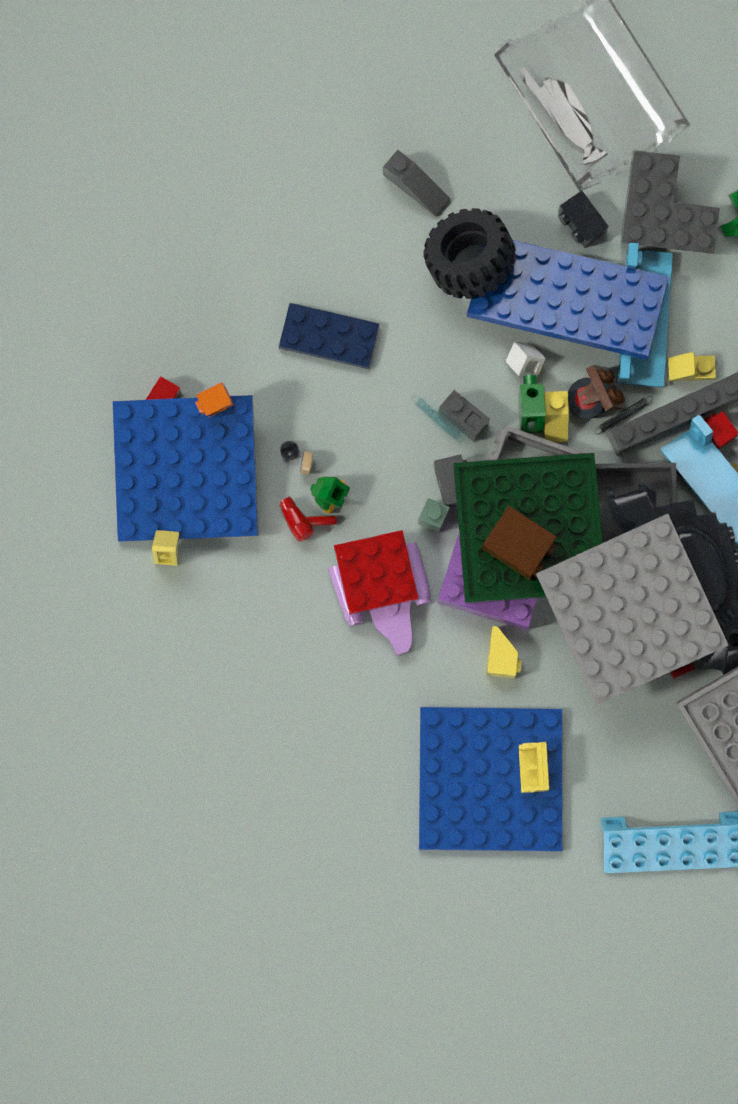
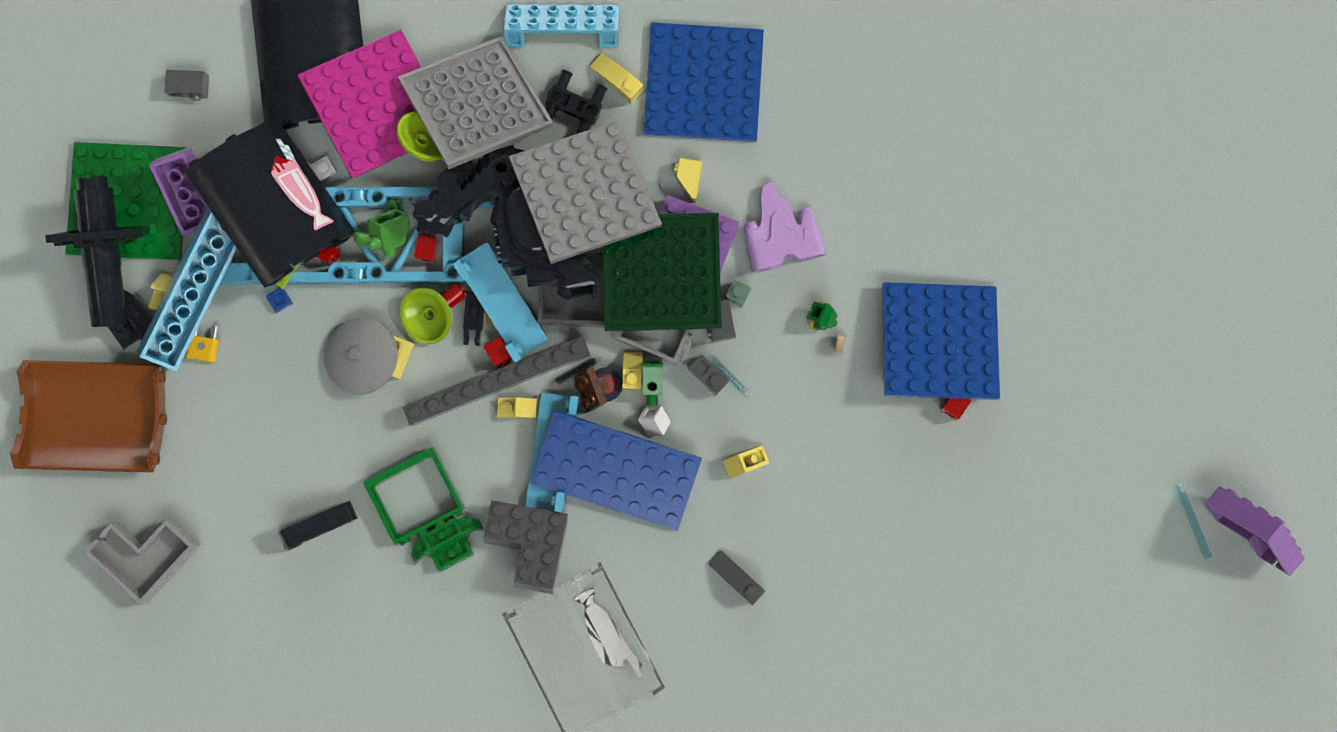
camera: 170 degrees left, 5 degrees up
(165, 548) = (958, 277): light yellow slope -> none
(214, 400) = (917, 388): orange brick -> none
(291, 454) = (855, 359): black hinge -> none
(298, 523) = (847, 292): red piece -> none
(328, 336) = (816, 450): dark blue plate -> none
(375, 572) = (788, 246): red plate -> none
(412, 316) = (746, 462): none -> light yellow slope
(460, 232) = (709, 527): black tyre -> none
(519, 543) = (671, 255): reddish brown brick -> none
(533, 767) = (670, 84): light yellow hinge -> none
(582, 219) = (598, 538): black brick -> none
(600, 777) = (617, 77): none -> light yellow slope
(651, 739) = (575, 104): none -> black piece

